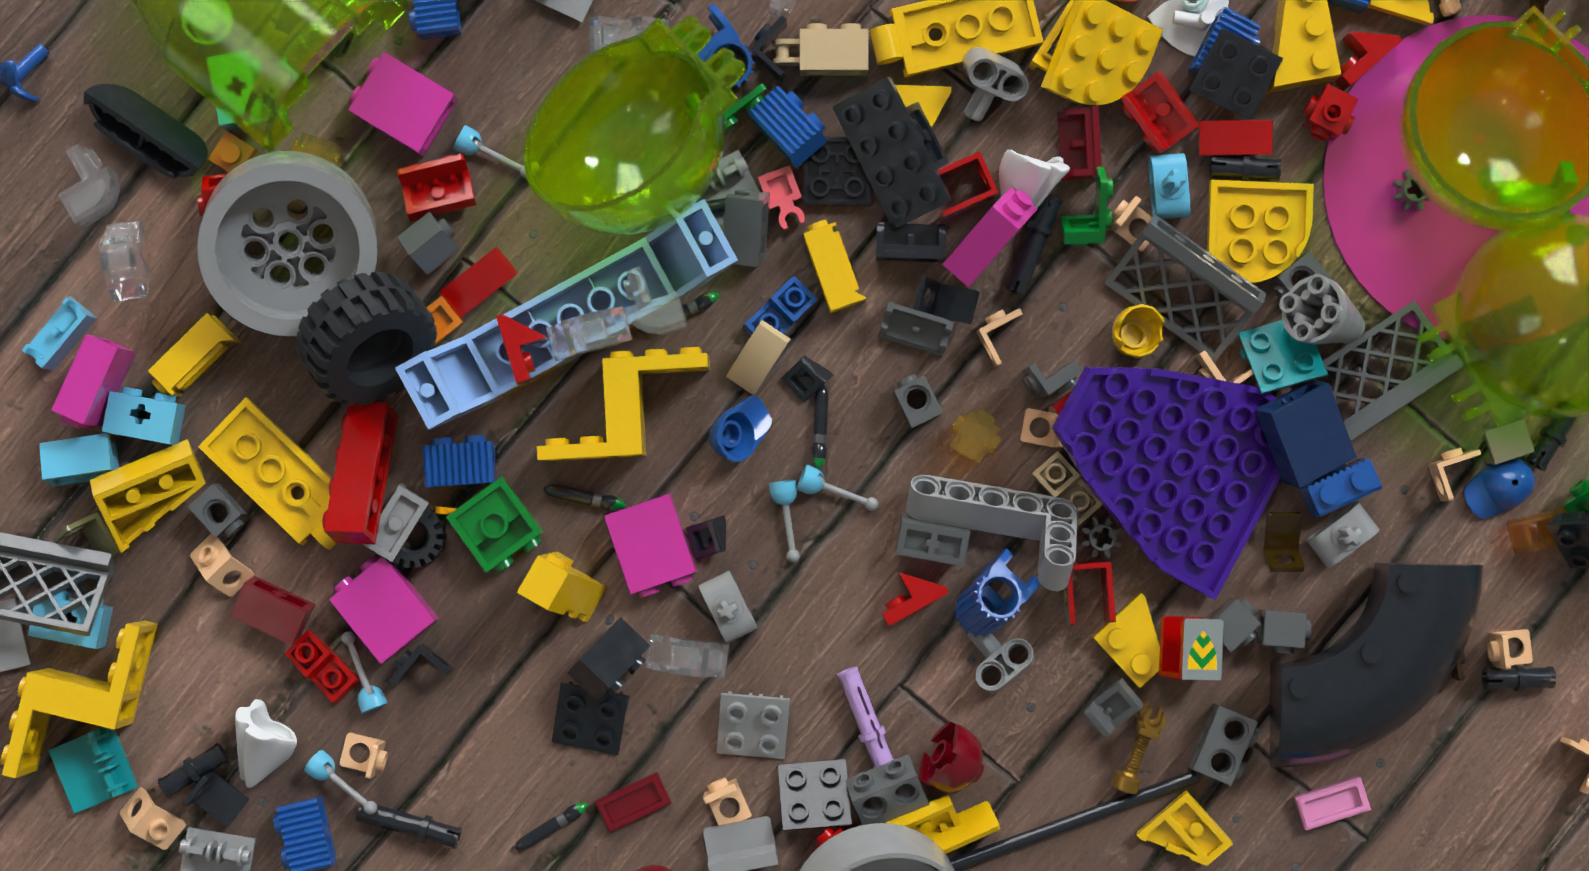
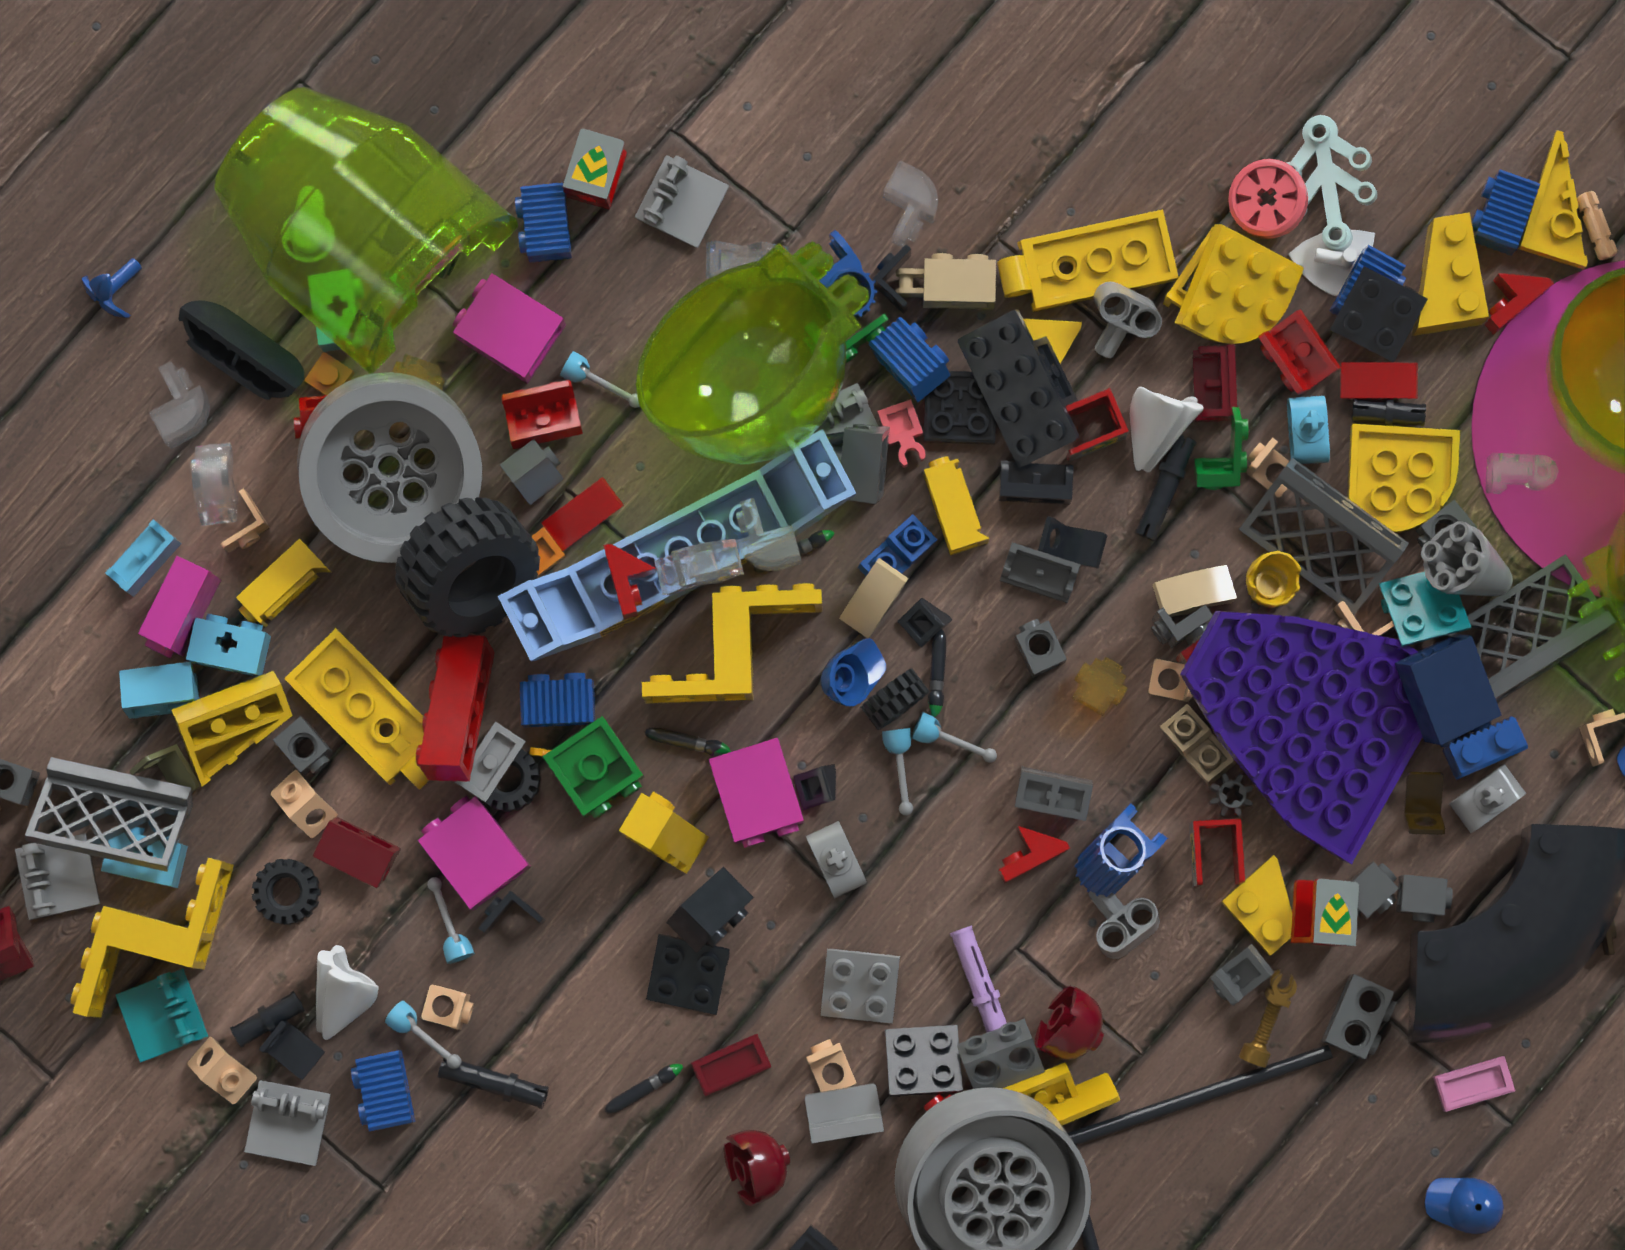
camera: 10 degrees right, 5 degrees down
(161, 308) = (248, 535): none -> light nougat bracket
(186, 649) = (264, 891): none -> black tyre
(322, 666) = (407, 913): red slope -> none
(687, 656) = (792, 909): clear brick -> none
(780, 454) = (894, 699): none -> black tyre
(990, 236) = (1119, 475): dark pink brick -> none
(995, 321) = (1122, 567): light nougat bracket -> none
(1003, 512) = (1128, 766): light grey beam -> none
(1063, 343) = (1195, 589): none -> tan slope
(1186, 830) = (1318, 1108): yellow wing -> none
(1329, 113) = (1484, 348): red brick -> none
(1377, 220) = (1519, 469): none -> clear leg
(1403, 196) = (1558, 448): dark grey gear -> none

